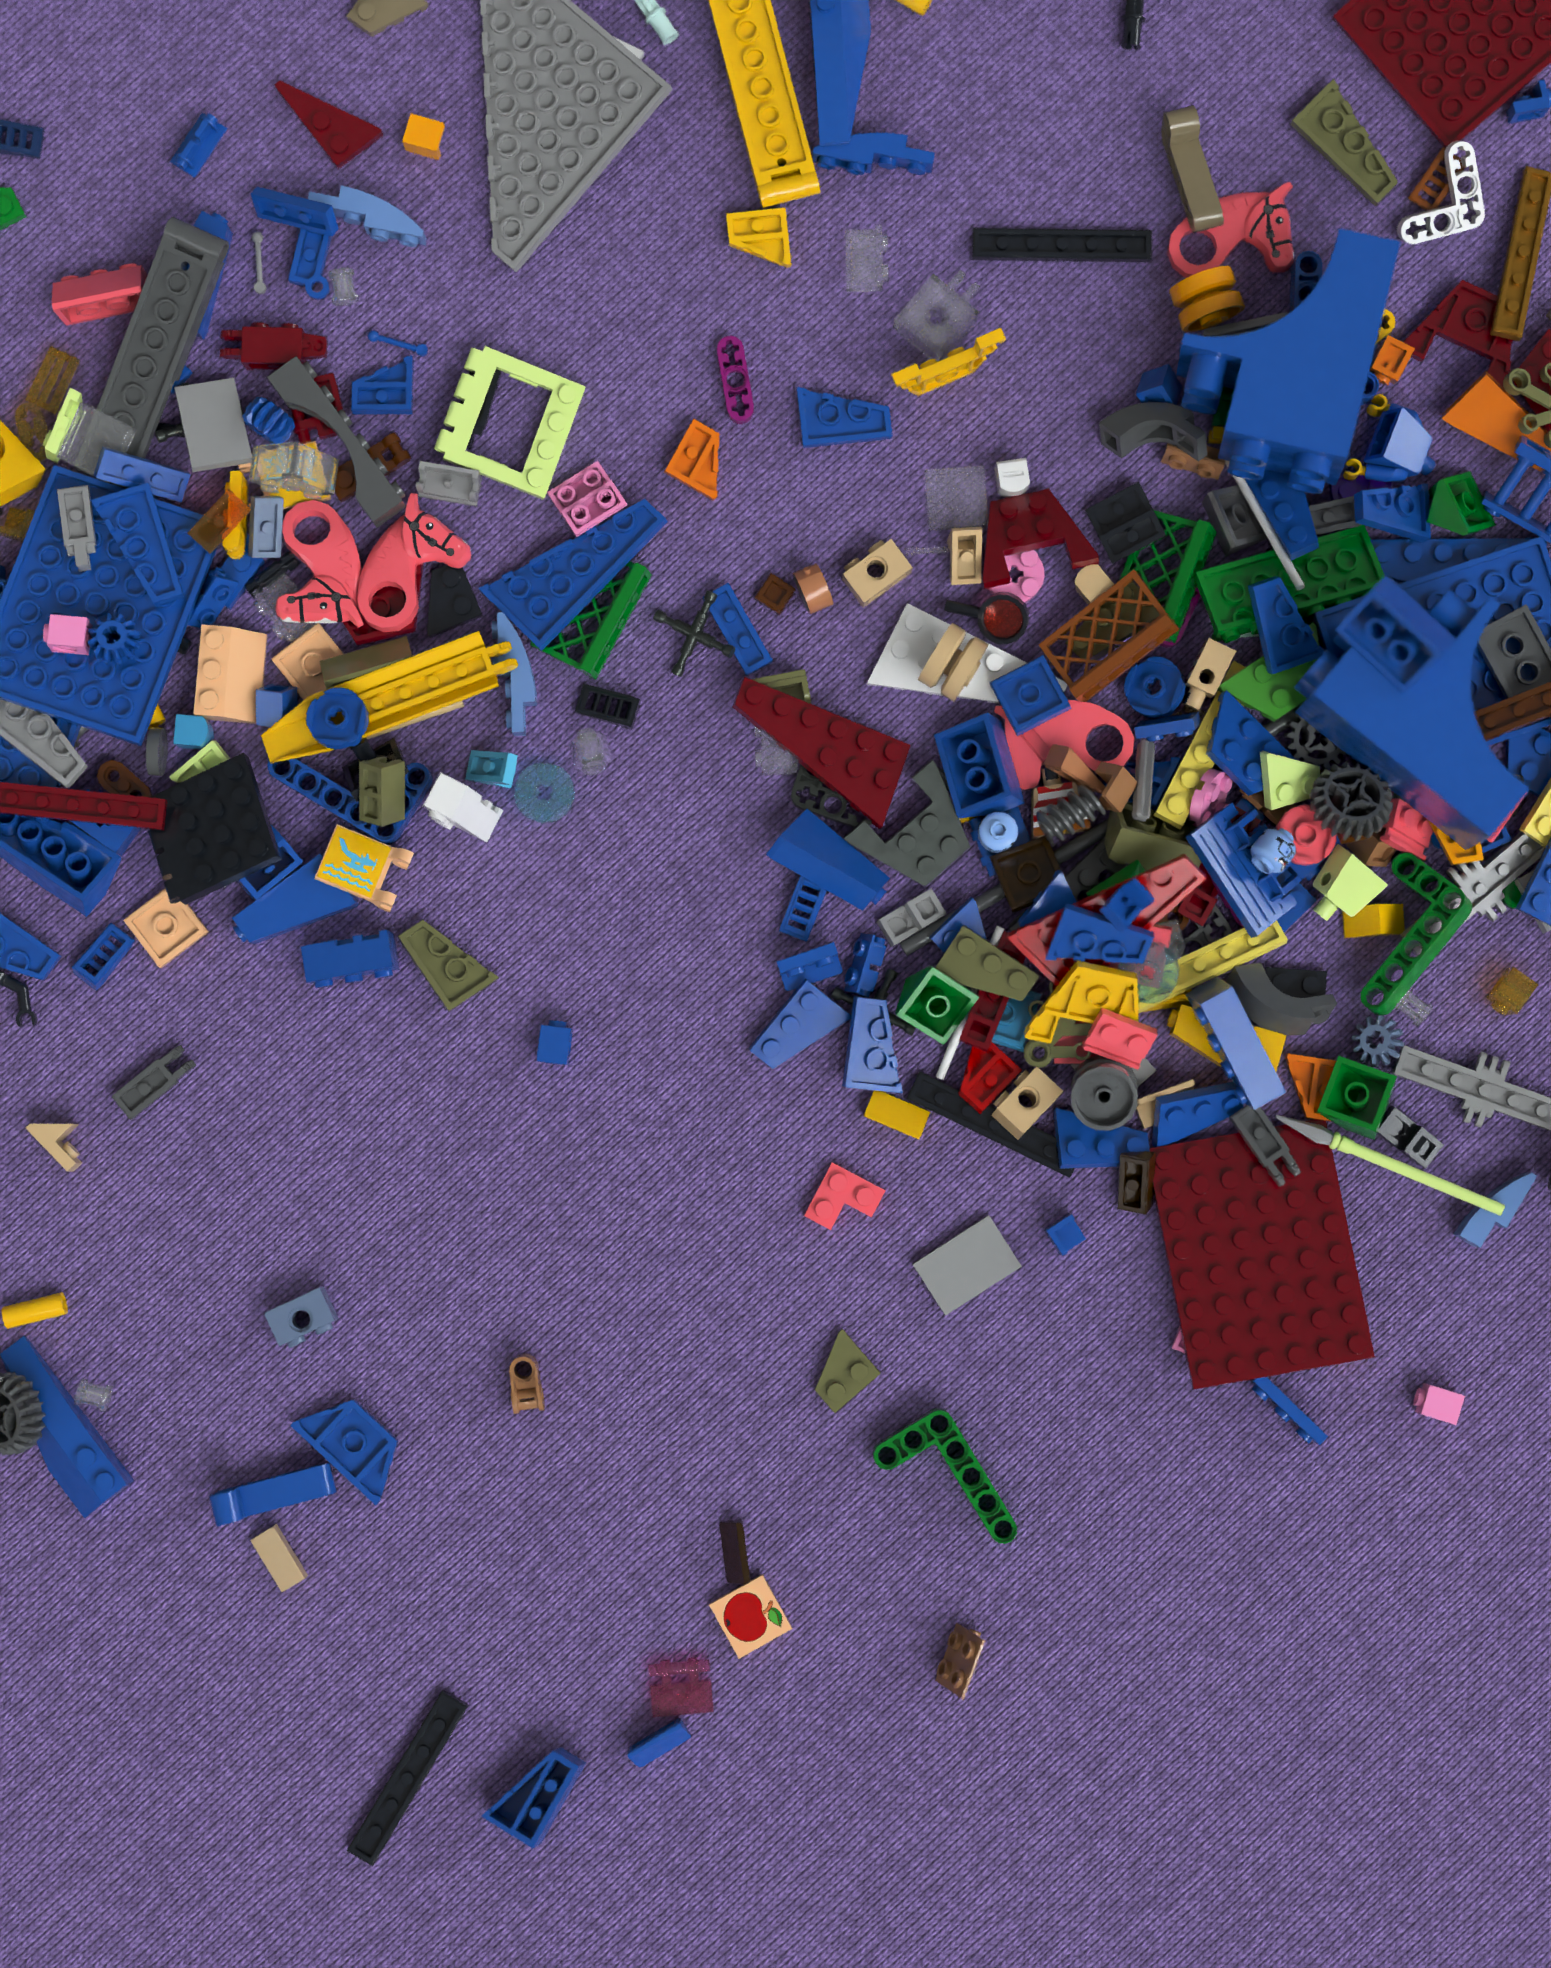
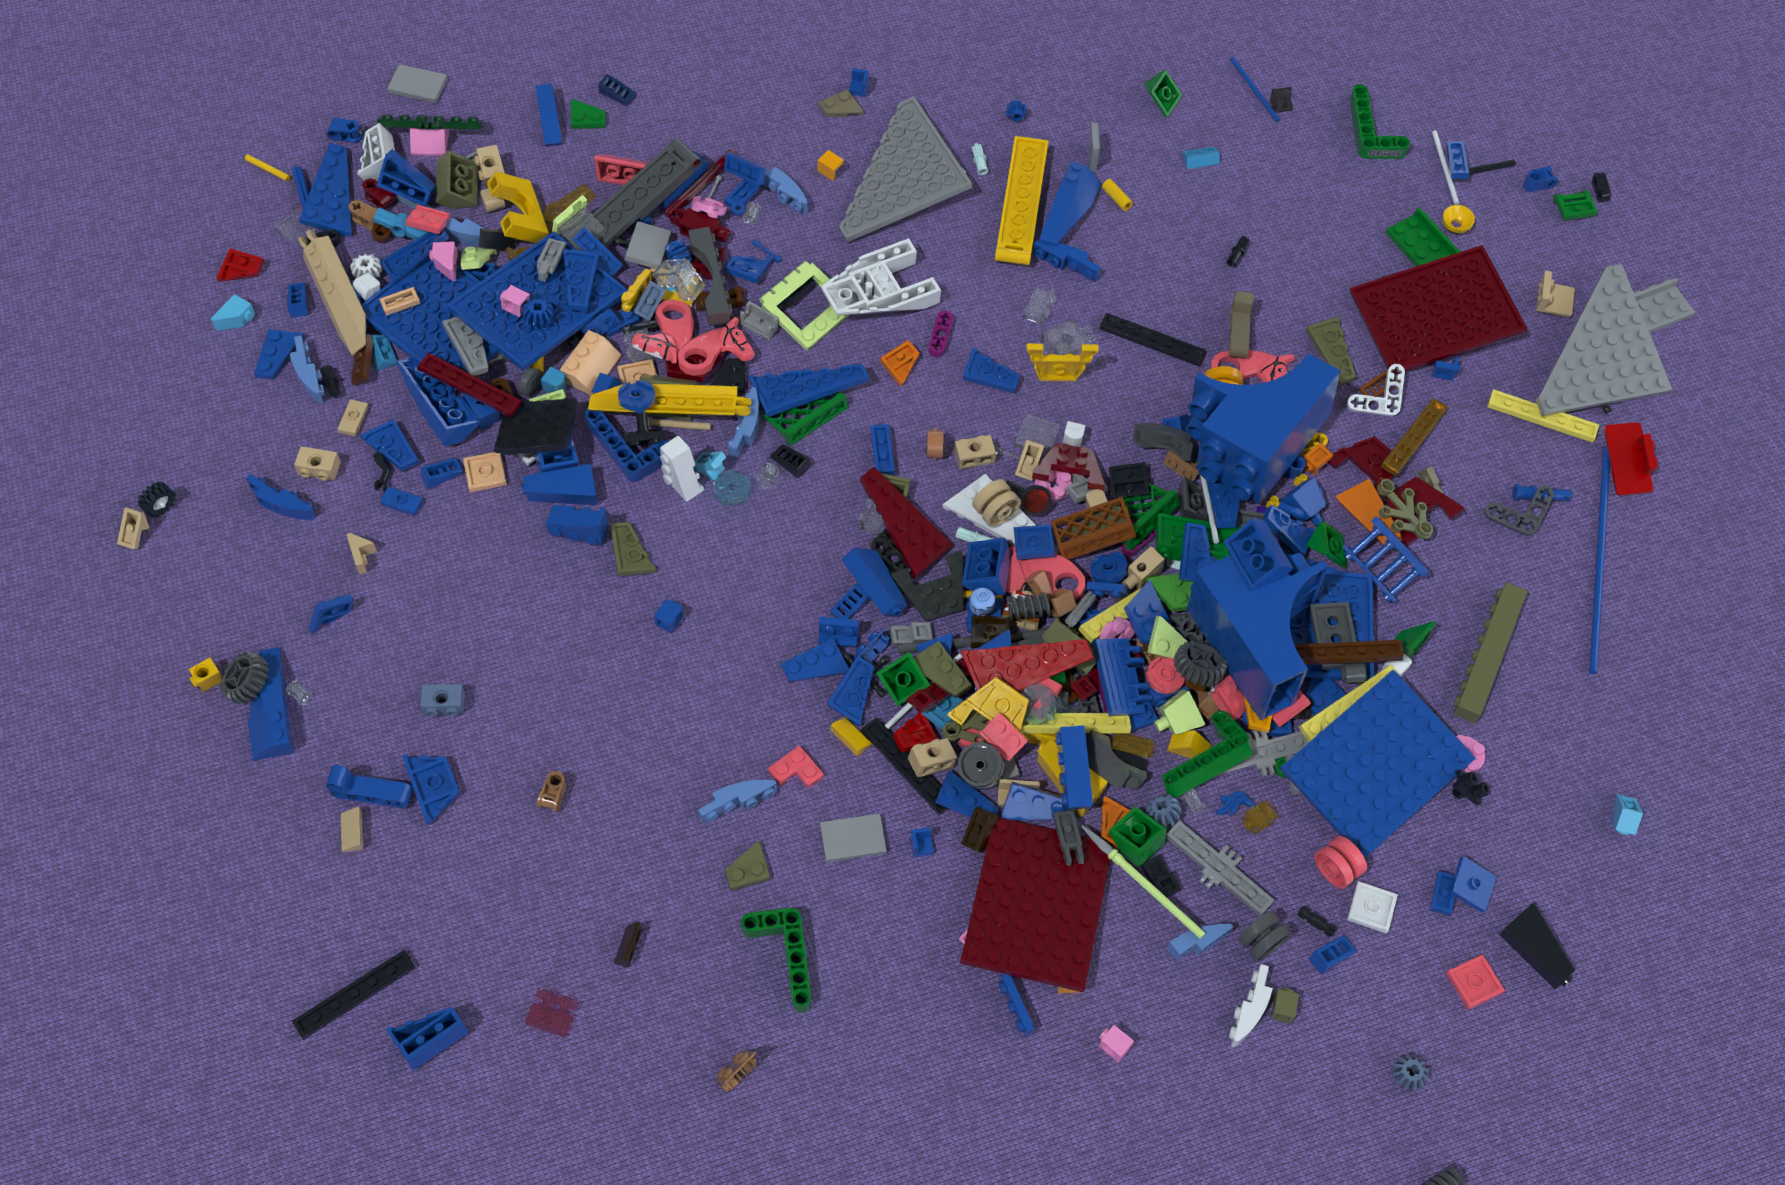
camera: 20 degrees right, 25 degrees down
(34, 1310) = (293, 634): yellow piece -> none
(66, 1259) = (330, 611): none -> blue wing
(70, 1029) = (401, 501): none -> blue plate
(151, 1084) = (431, 544): dark grey hinge -> none
(198, 144) = (710, 128): blue hinge -> none
(219, 521) = (625, 284): clear orange slope -> none
(232, 265) = (697, 186): none -> dark red axle
(271, 307) = (709, 205): none -> bright pink plate
(336, 131) = (784, 146): dark red wing -> none
(360, 866) = (609, 480): flag -> none
(381, 791) = (641, 440): olive hinge -> none
(587, 498) = (830, 355): bright pink slope -> none
(593, 353) = (871, 287): none -> white wedge
(658, 1743) = (519, 1040): blue slope -> none
(694, 633) = (856, 441): pearl dark grey piece -> none
(750, 1616) = (617, 988): tile -> none
(761, 234) = (988, 272): yellow wing -> none
(775, 594) = (912, 442): reddish brown tile -> none
(790, 1270) = (744, 794): none -> medium blue slope
(939, 719) = (970, 536): none -> light aqua axle
(1058, 571) = (1079, 488): none -> light grey hinge
(1092, 936) = (1014, 667): blue wing -> none
(1126, 904) = (1039, 650): blue bracket -> none
(1273, 851) = (1141, 669): light blue head -> none
(1294, 950) = (1132, 744): none -> clear yellow tile
(1465, 979) = (1233, 801): none -> blue piece

